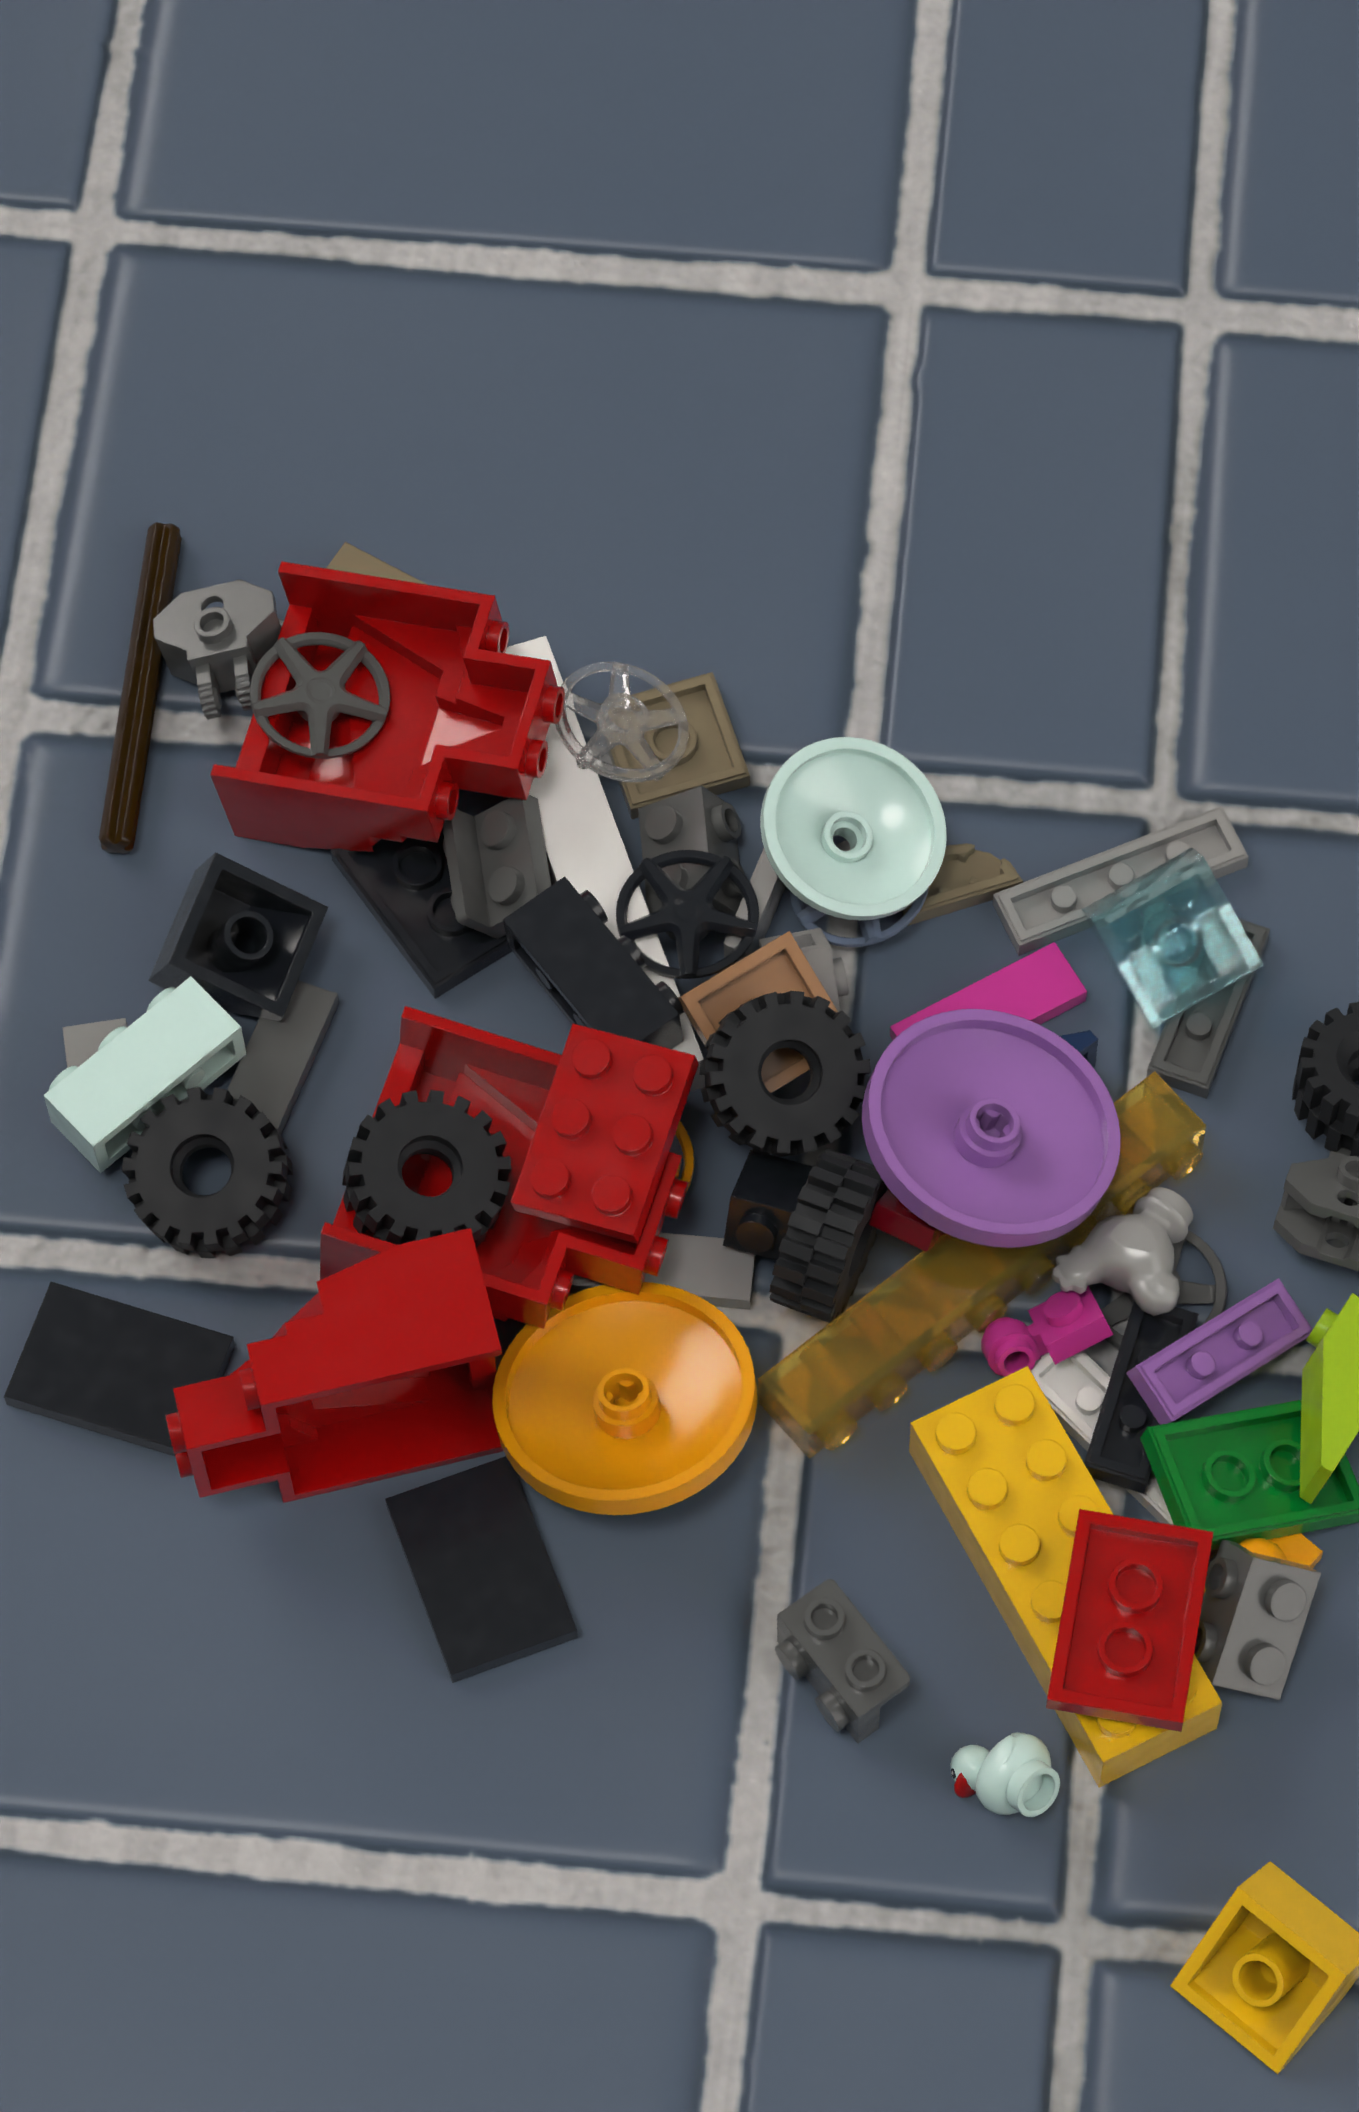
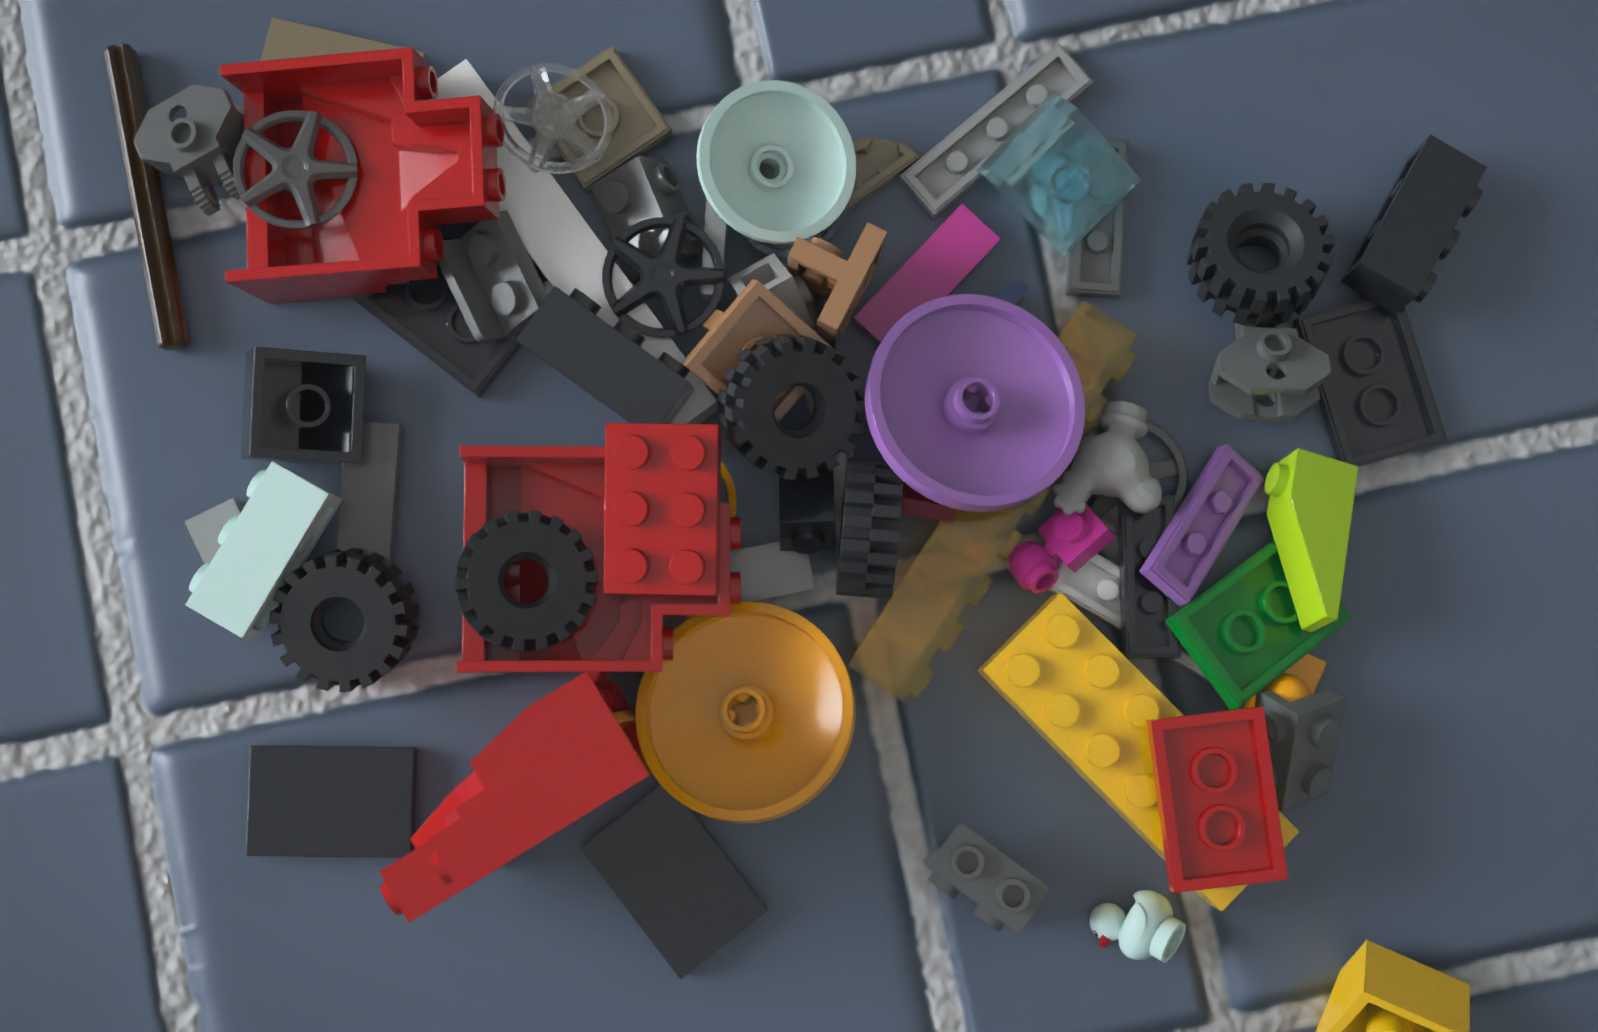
camera: 20 degrees left, 20 degrees up
(886, 974) = (837, 279): none -> medium nougat bracket

